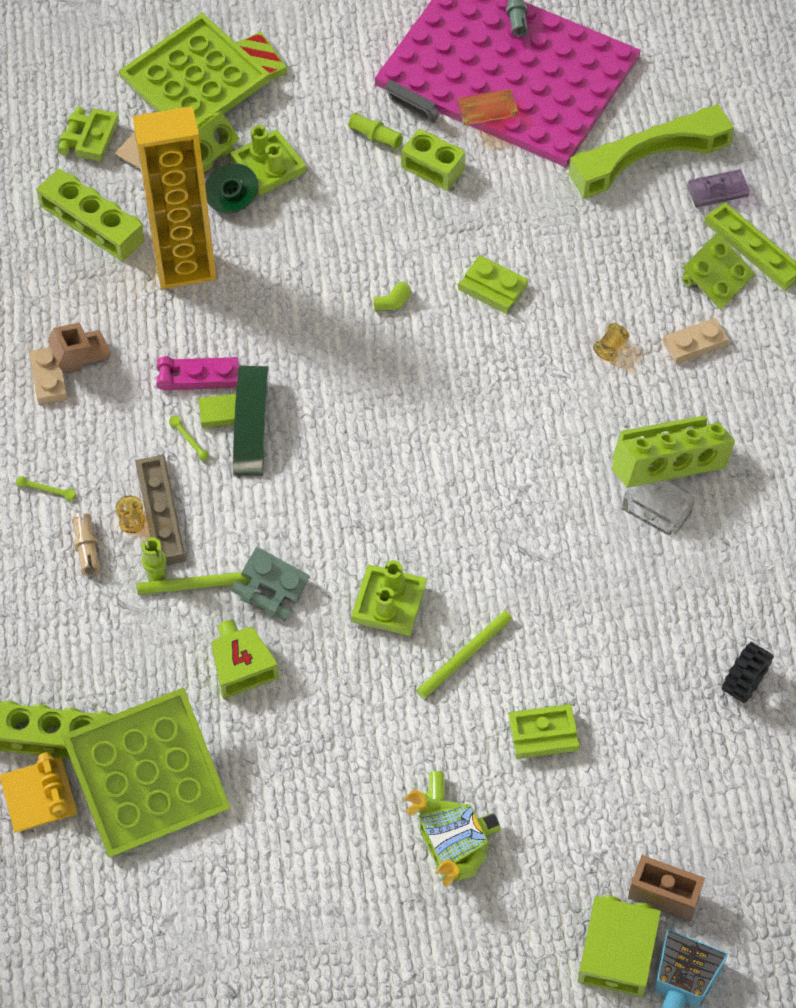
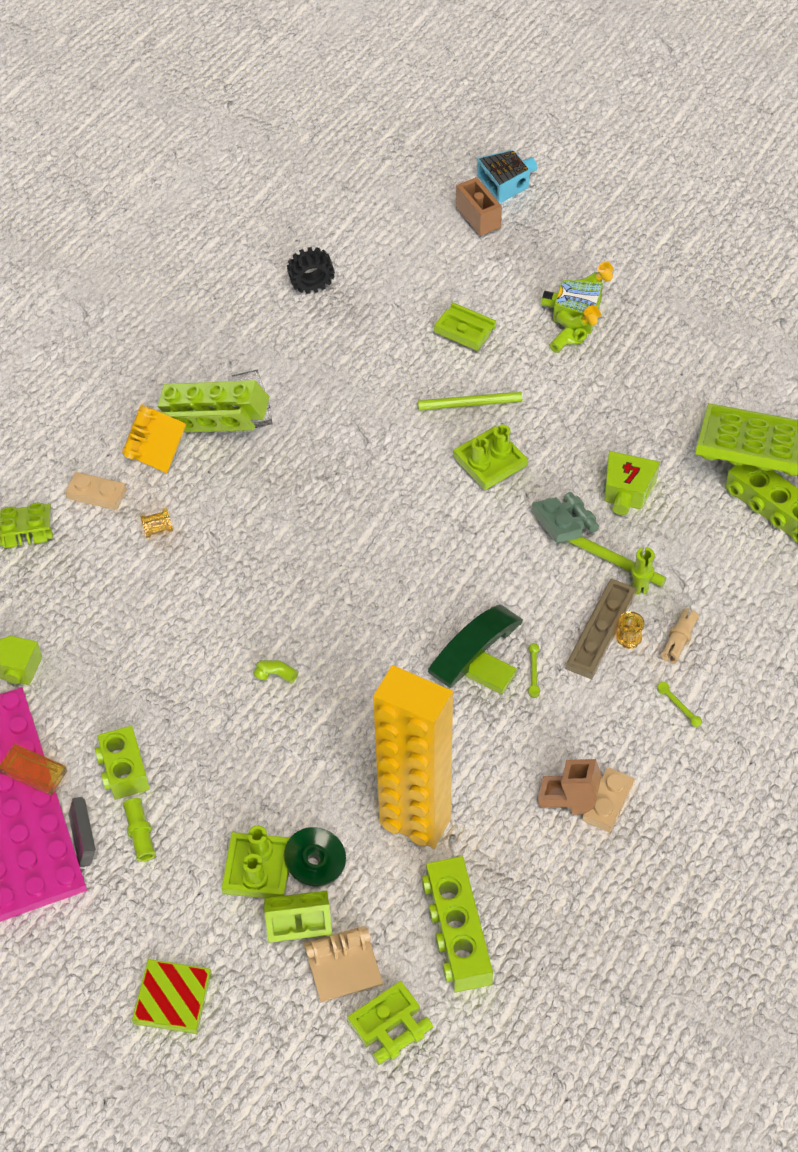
camera: 140 degrees left, 5 degrees down
(195, 69) = (239, 1011): lime plate -> none
(197, 373) = (486, 716): dark pink plate -> none
(493, 284) = (188, 631): lime plate -> none
(619, 945) = (531, 201): lime panel -> none
(706, 401) = (154, 438): none -> yellow hinge

